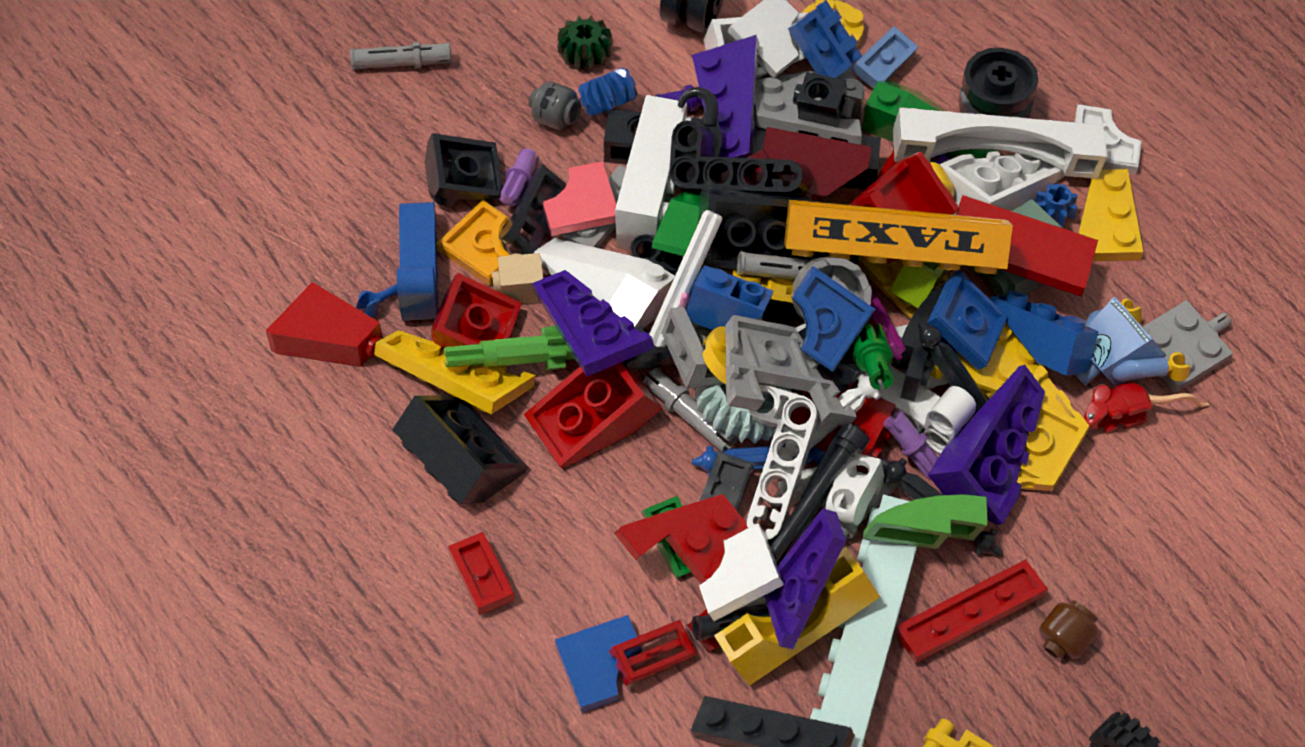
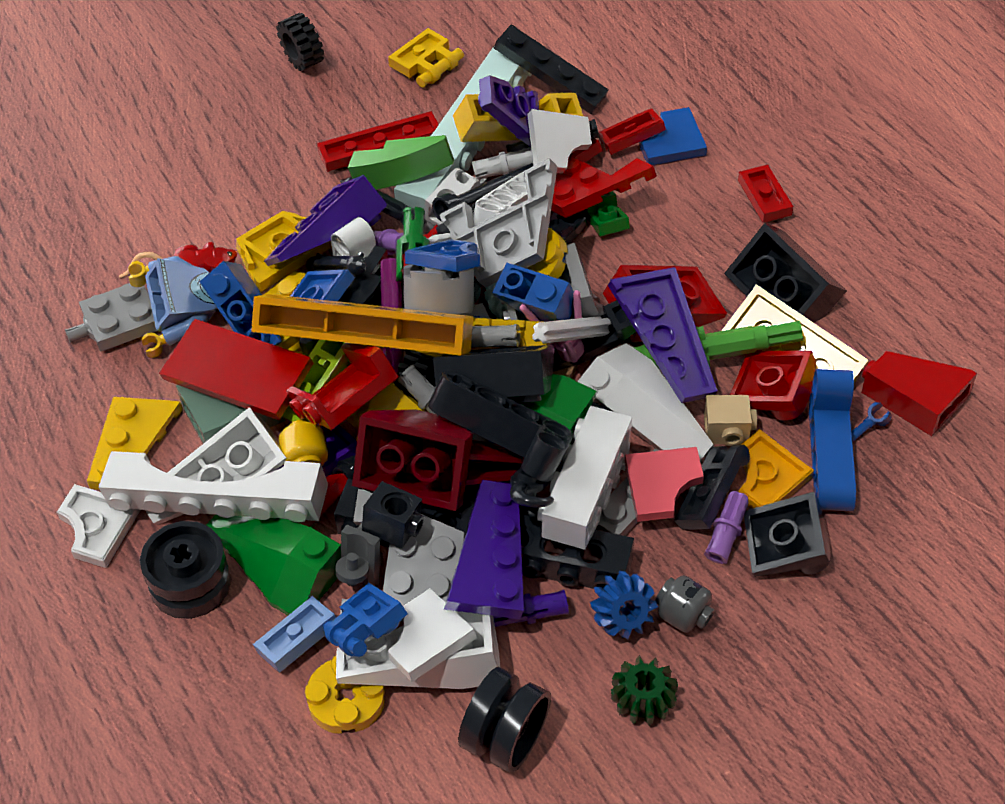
camera: 170 degrees left, 5 degrees down
(407, 55) = (874, 701): light grey pin -> none
(1058, 202) = (175, 444): blue gear -> none
(1068, 630) = (311, 119): reddish brown head -> none

